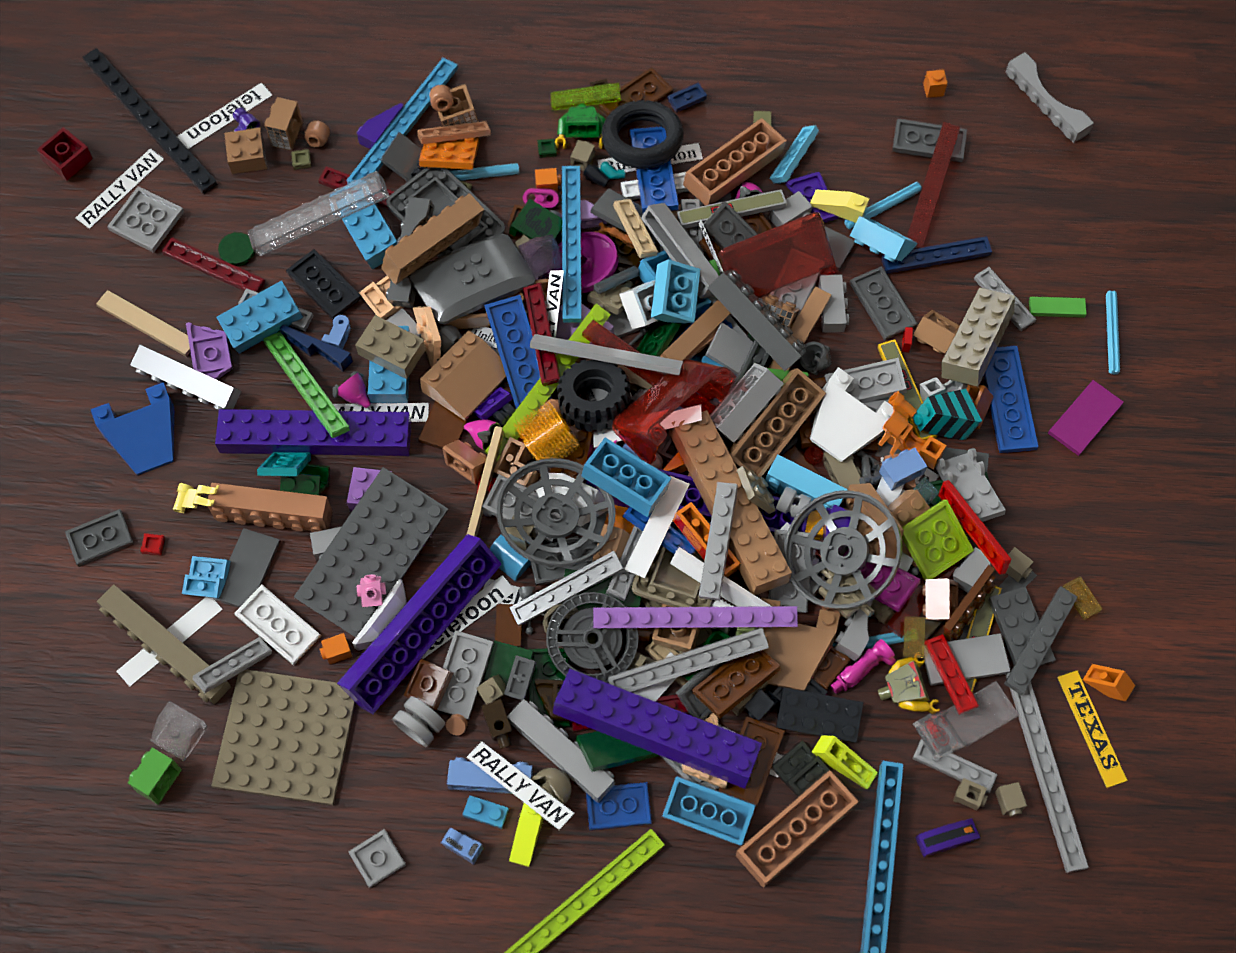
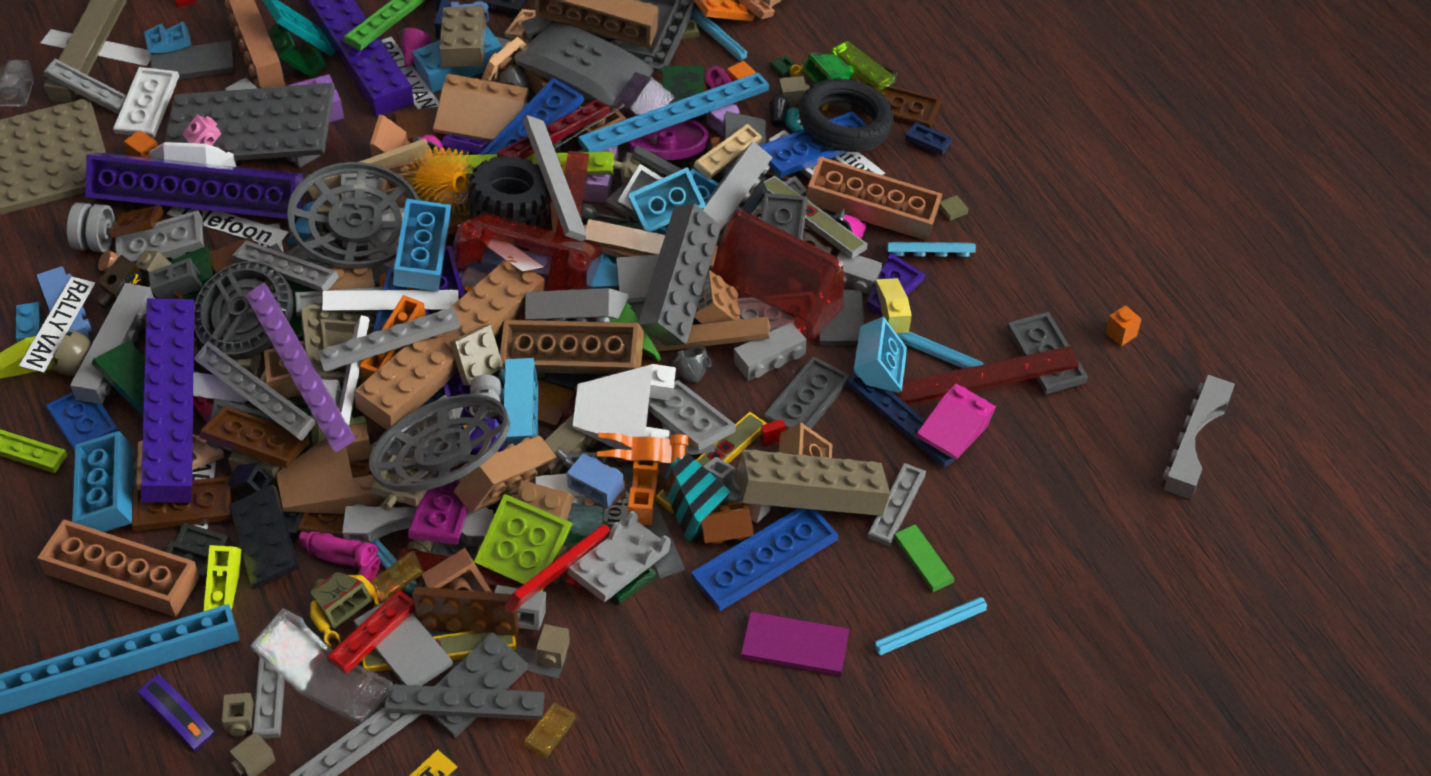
camera: 60 degrees right, 15 degrees down
(965, 225) = (956, 421): none -> dark pink slope

